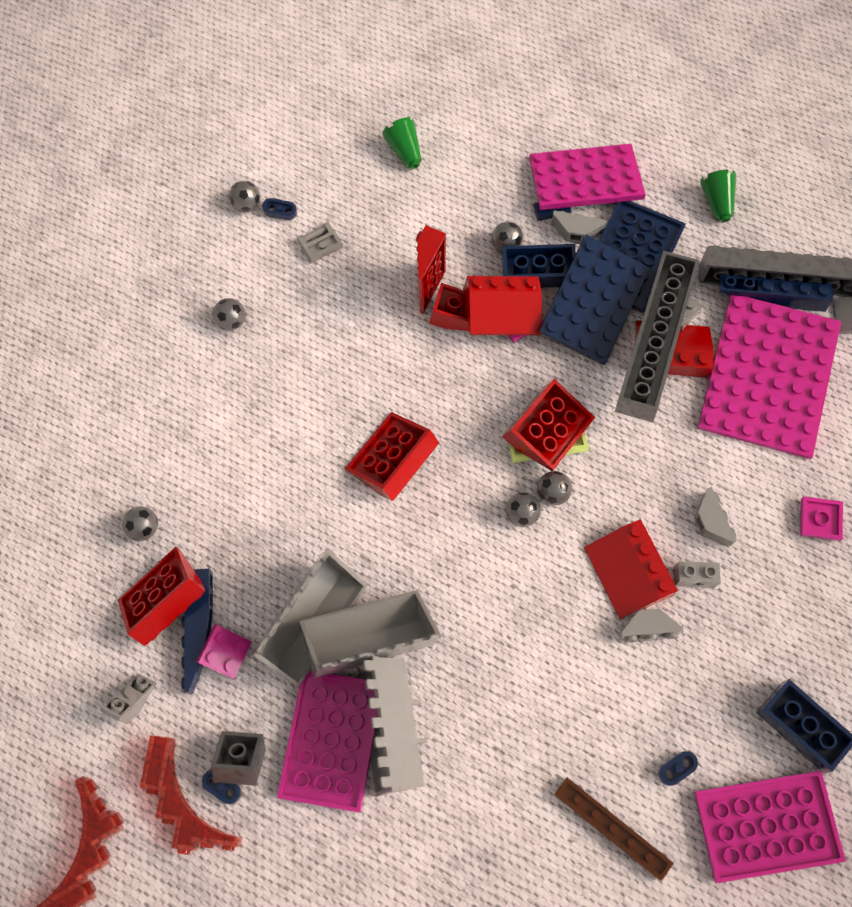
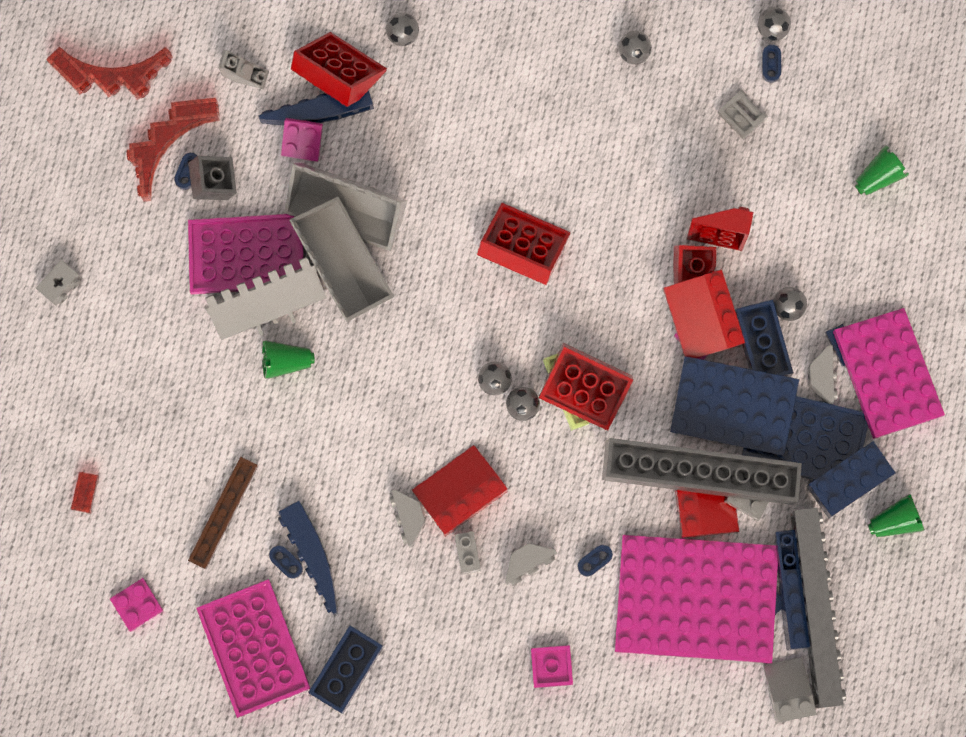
camera: 80 degrees right, 10 degrees up
(457, 722) = (284, 359): none -> green cone
(670, 738) = (311, 551): none -> dark blue slope
(681, 219) = (851, 479): none -> dark blue brick
(721, 457) = (594, 560): none -> dark blue plate

